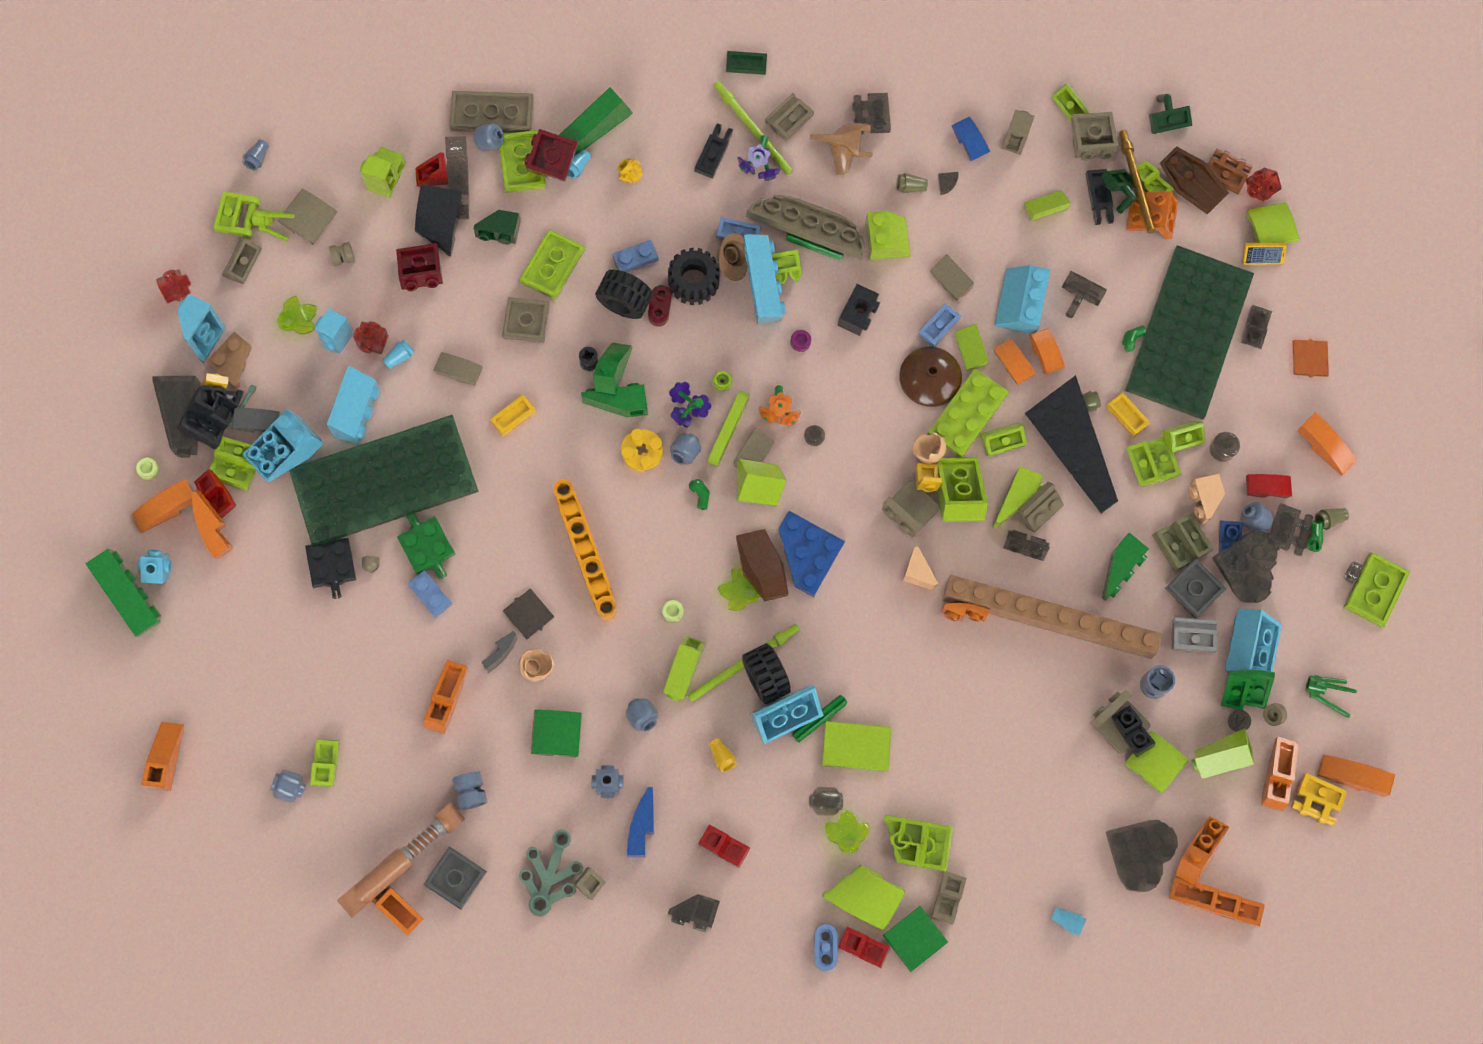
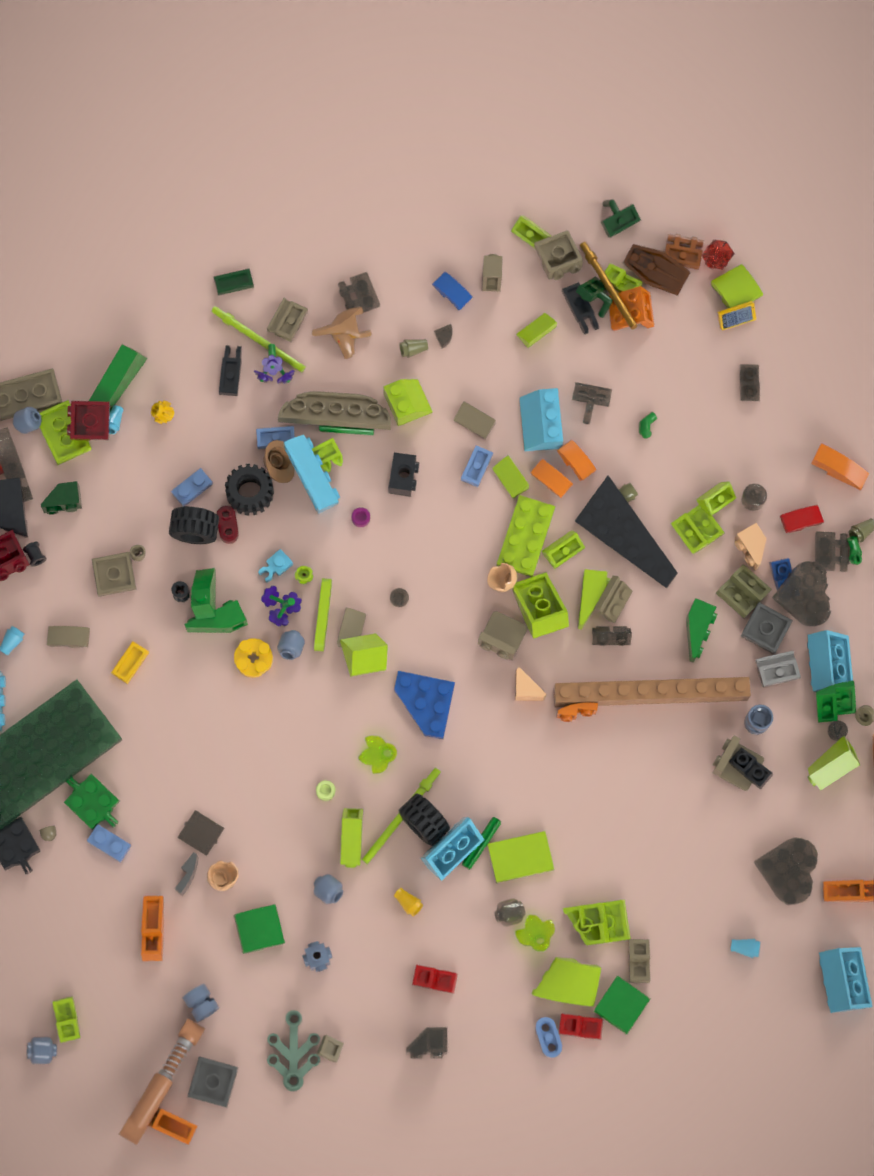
camera: 15 degrees left, 0 degrees up
(451, 274) = (34, 553): none -> black bush
(552, 264) = (120, 517): lime tile -> none
(556, 303) = (135, 551): none -> dark tan hinge
(585, 549) = (232, 761): light orange beam -> none
(641, 825) = (358, 984): blue slope -> none
(698, 361) = (277, 564): none -> medium azure plate
(702, 491) = (316, 676): green arm -> none
(762, 565) = (390, 725): reddish brown piece -> none
(778, 407) = (361, 582): orange plant -> none
(927, 477) = (508, 604): yellow bracket -> none
(929, 388) = (479, 524): reddish brown dish -> none
(1127, 414) = (663, 494): yellow tile -> none
(1159, 764) = (780, 790): lime slope -> none
(1166, 990) = (845, 979): none -> medium azure slope
(1189, 332) = (694, 404): clear green plate -> none
(1201, 850) = (839, 851): orange slope -> none
(1257, 517) = (799, 550): sand blue head -> none
(1310, 358) = (804, 395): clear orange piece -> none

